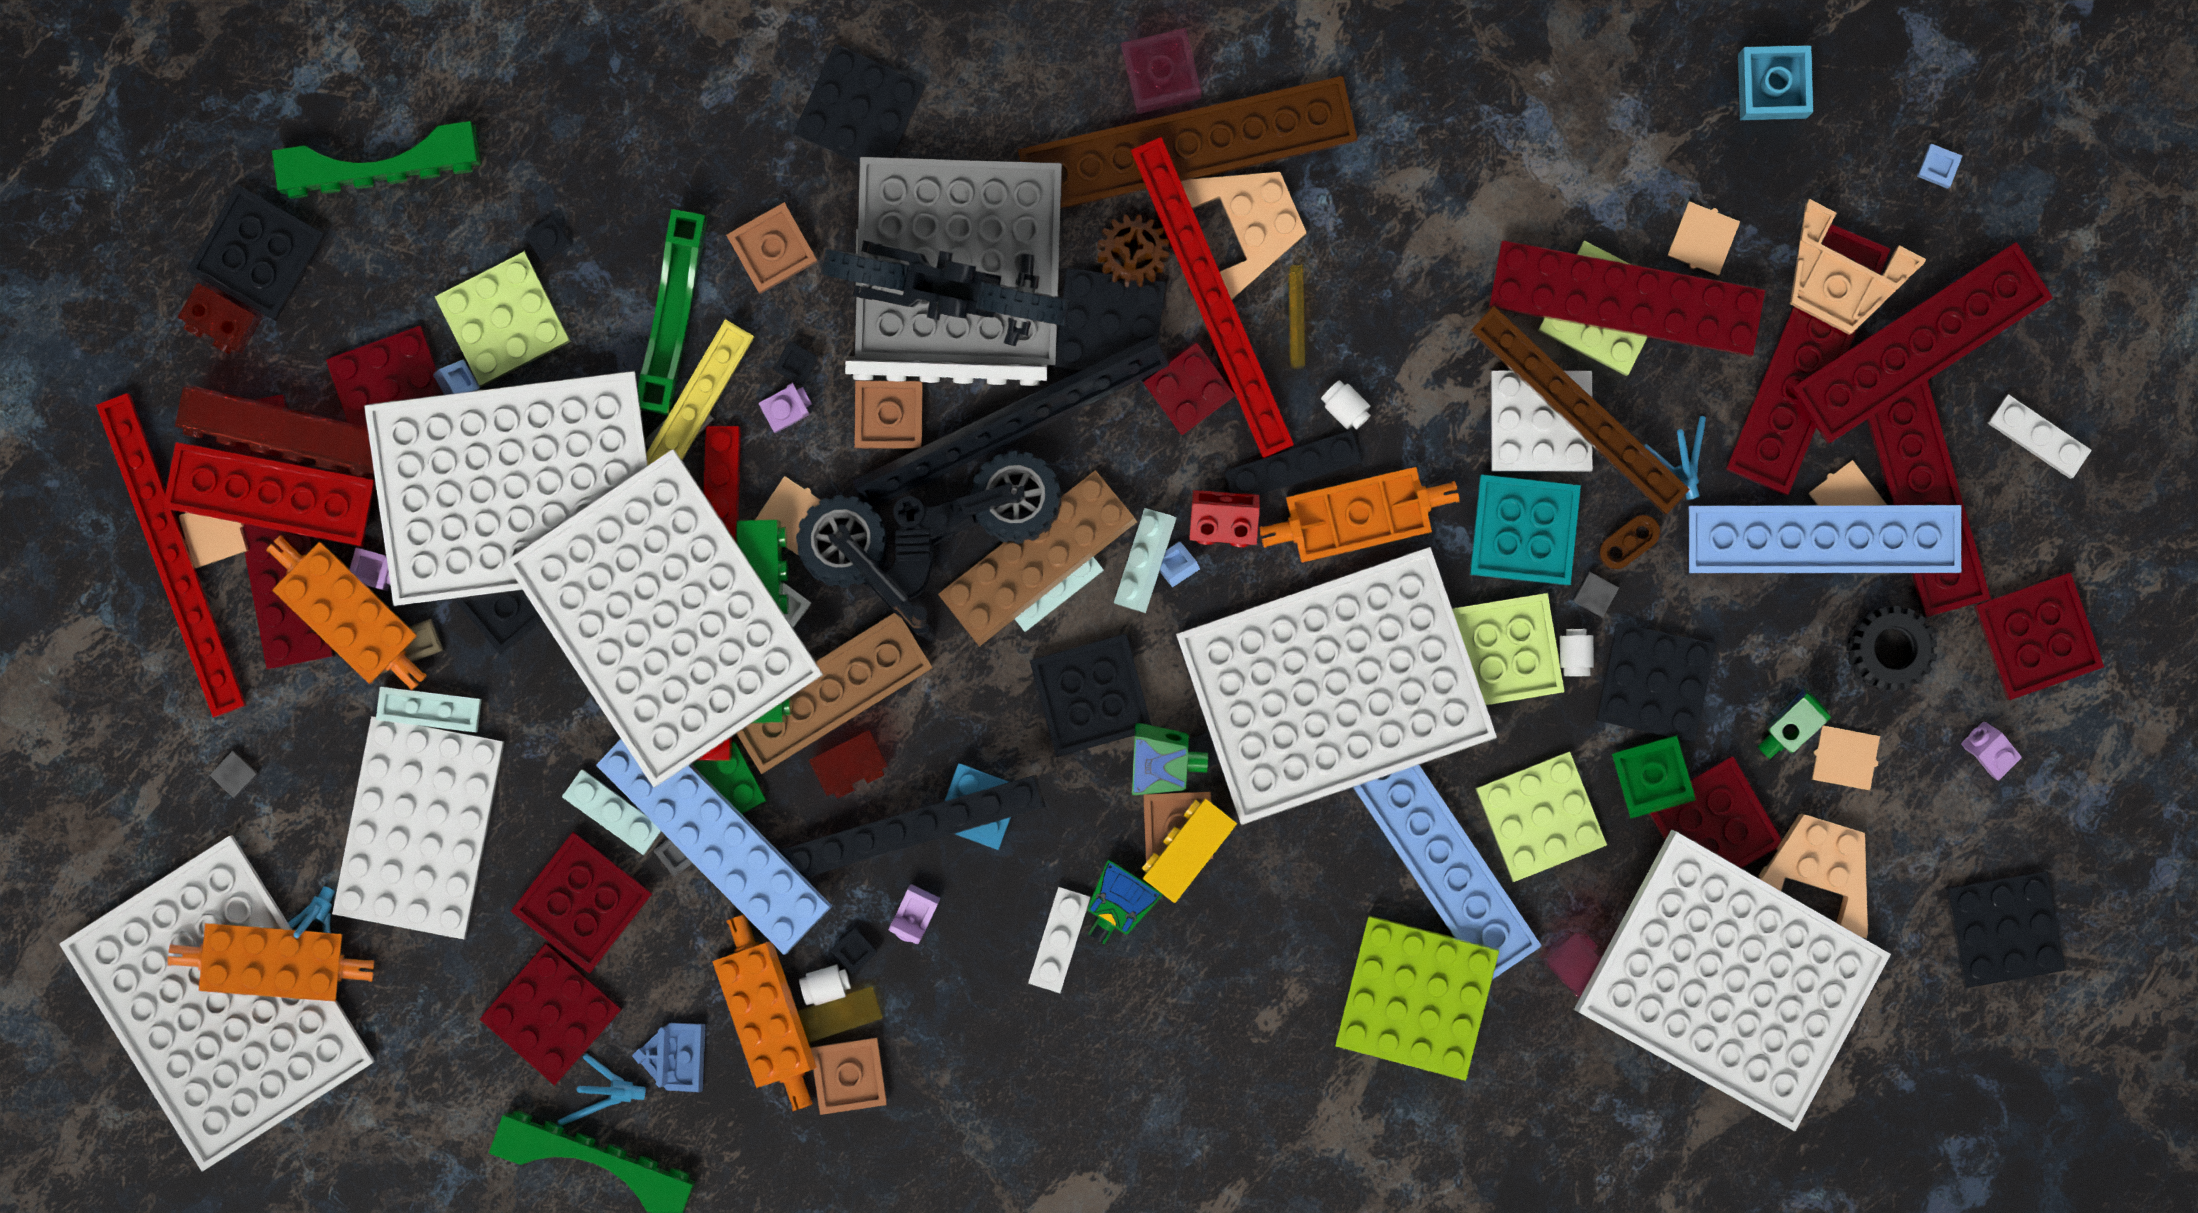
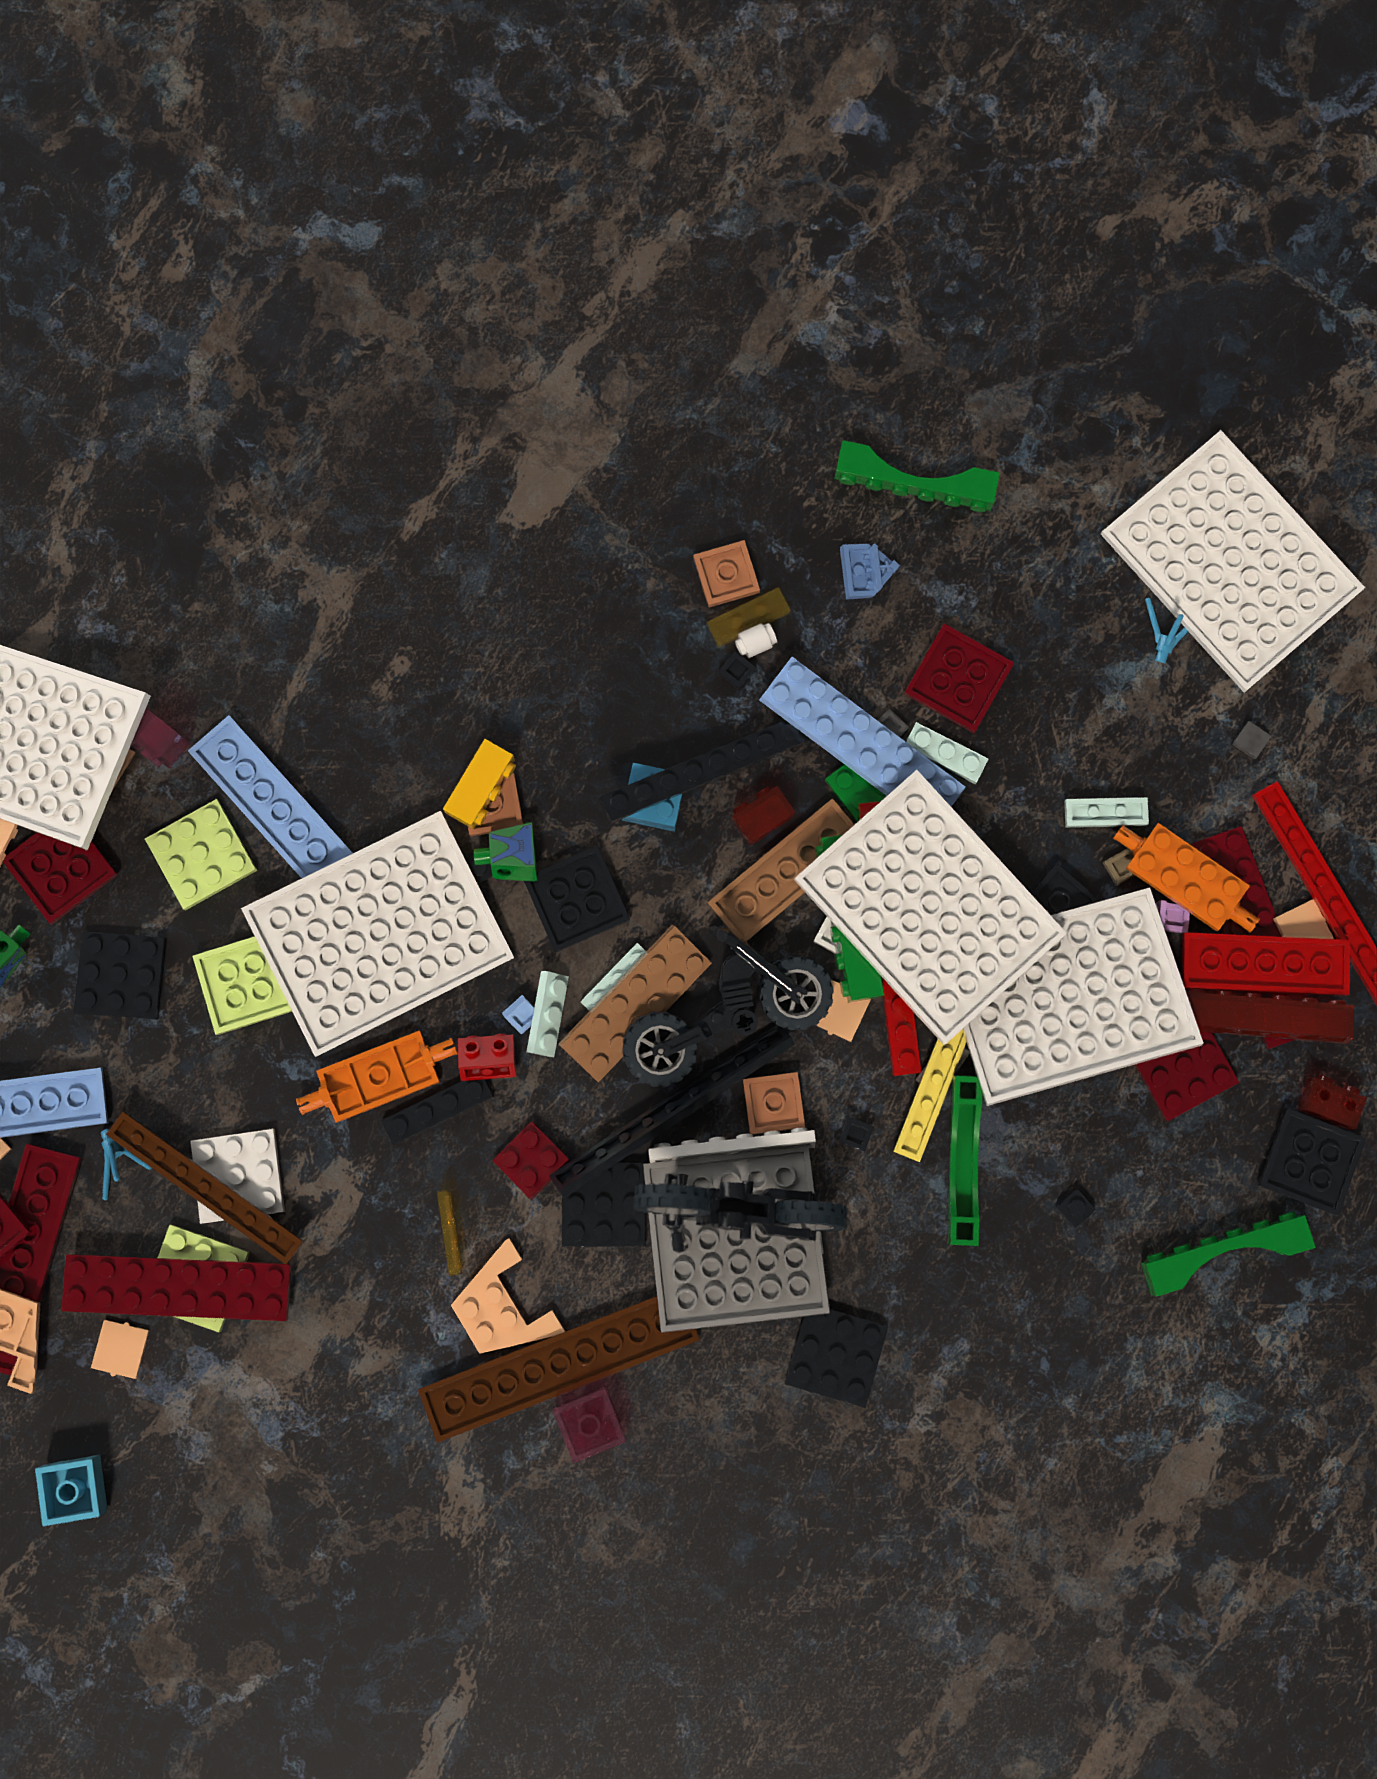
camera: 170 degrees right, 5 degrees down
(270, 962) = (1197, 593): orange plate -> none
(418, 828) = (1097, 718): white plate -> none
(456, 378) = (1130, 1080): light blue plate -> none
(502, 319) = (1101, 1137): yellowish green plate -> none
(550, 1014) = (968, 589): dark red plate -> none
(618, 1091) = (905, 536): dark azure plant -> none
(765, 1014) = (800, 611): orange plate -> none
(771, 248) = (890, 1227): nougat plate -> none
(786, 407) = (858, 1097): lavender bracket -> none
(914, 914) = (693, 704): lavender bracket -> none
(1059, 940) = (575, 703): white plate -> none
(1119, 901) = (531, 738): torso -> none
(1147, 253) = (581, 1268): reddish brown gear -> none
(1211, 297) = (522, 1239): red plate -> none
(1346, 405) = (399, 1165): white brick -> none
(1417, 997) = (282, 696): lime plate -> none
(1525, 530) = (240, 1083): teal plate -> none
(1576, 653) = (186, 989): white brick -> none
(1595, 594) = (176, 1039): flat silver tile -> none
(1628, 542) = (153, 1085): reddish brown plate -> none
(1653, 777) = (111, 897): green plate -> none

